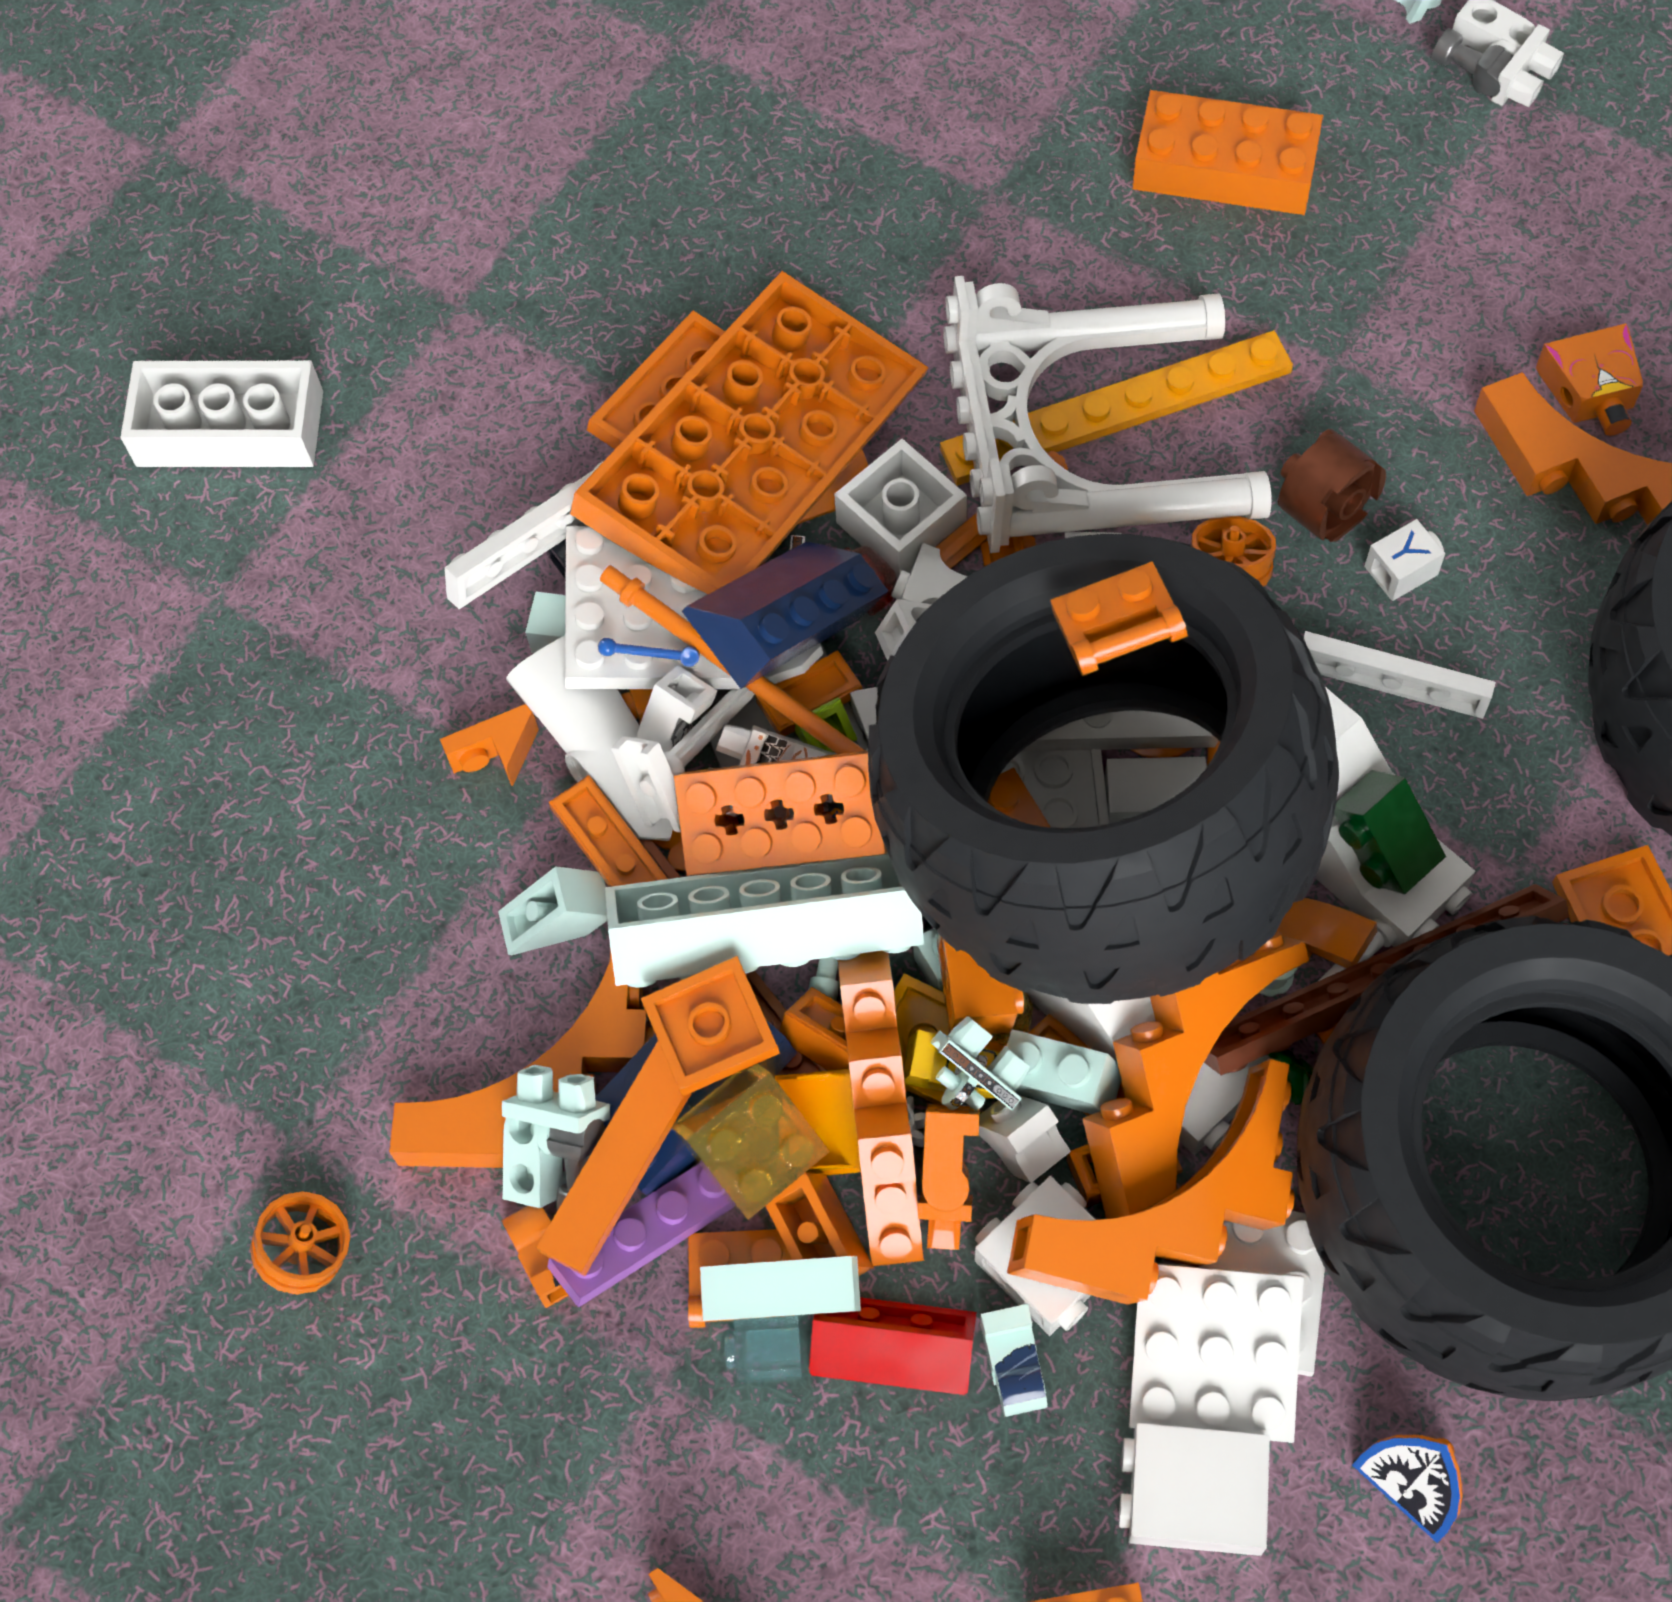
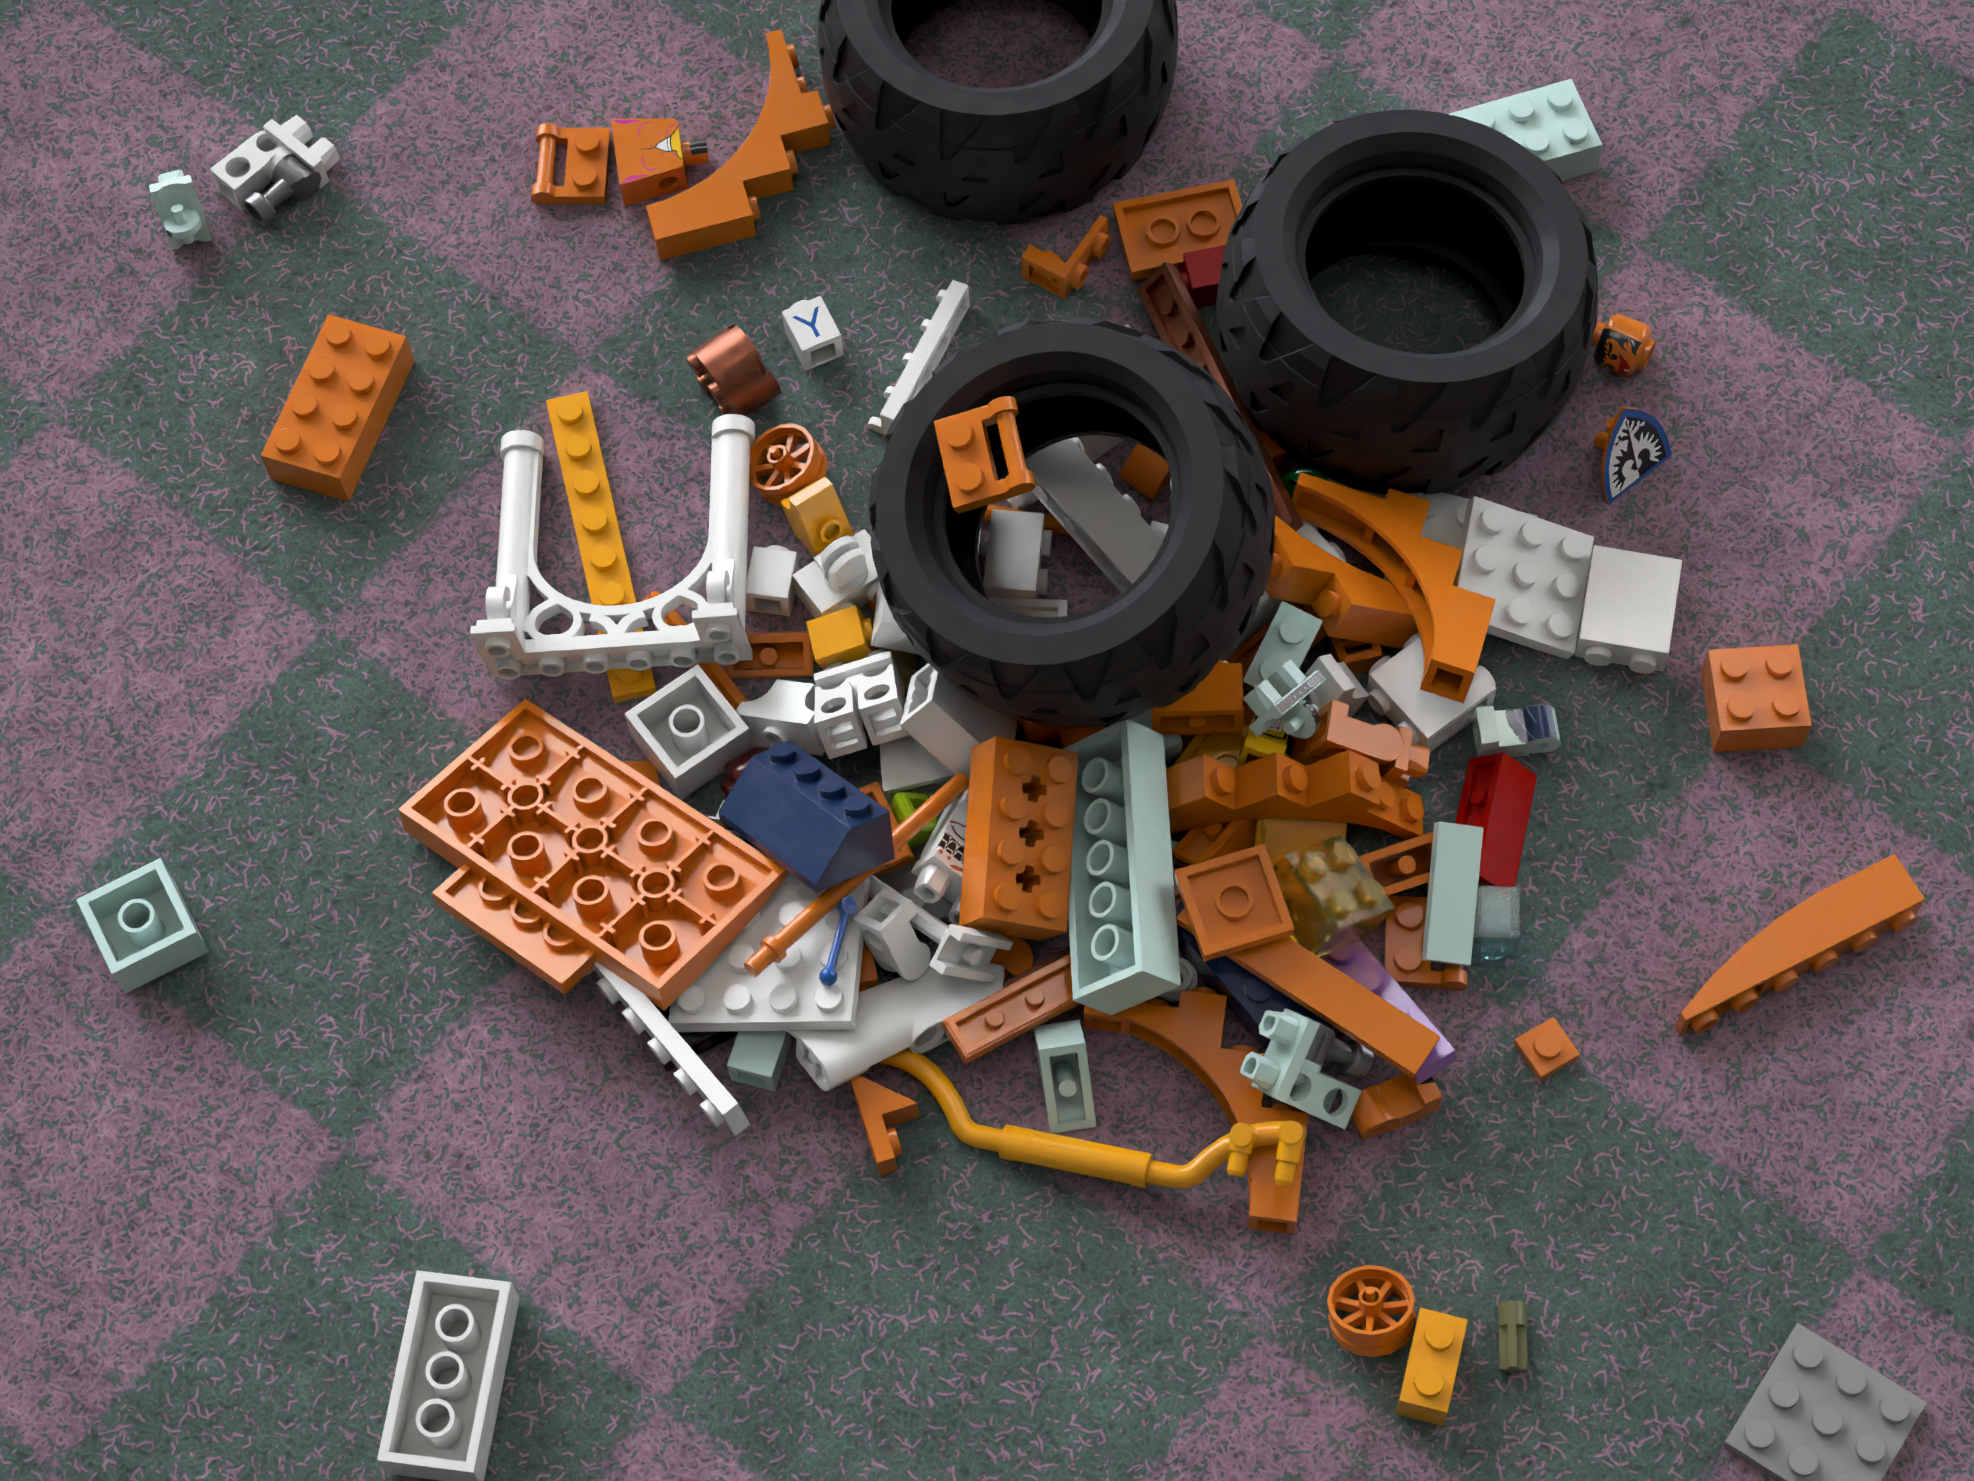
camera: 85 degrees left, 0 degrees up
(239, 1310) = (1431, 1366): none -> light orange brick
(283, 1402) = (1513, 1336): none -> olive piece
(457, 967) = (1105, 1160): none -> light orange piece
(621, 1422) = (1546, 1049): none -> orange plate
(650, 100) = (142, 925): none -> light aqua brick
(1546, 816) = (1060, 277): none -> orange bracket
(1572, 318) = (585, 165): none -> orange plate
(1579, 1466) = (1623, 345): none -> orange head

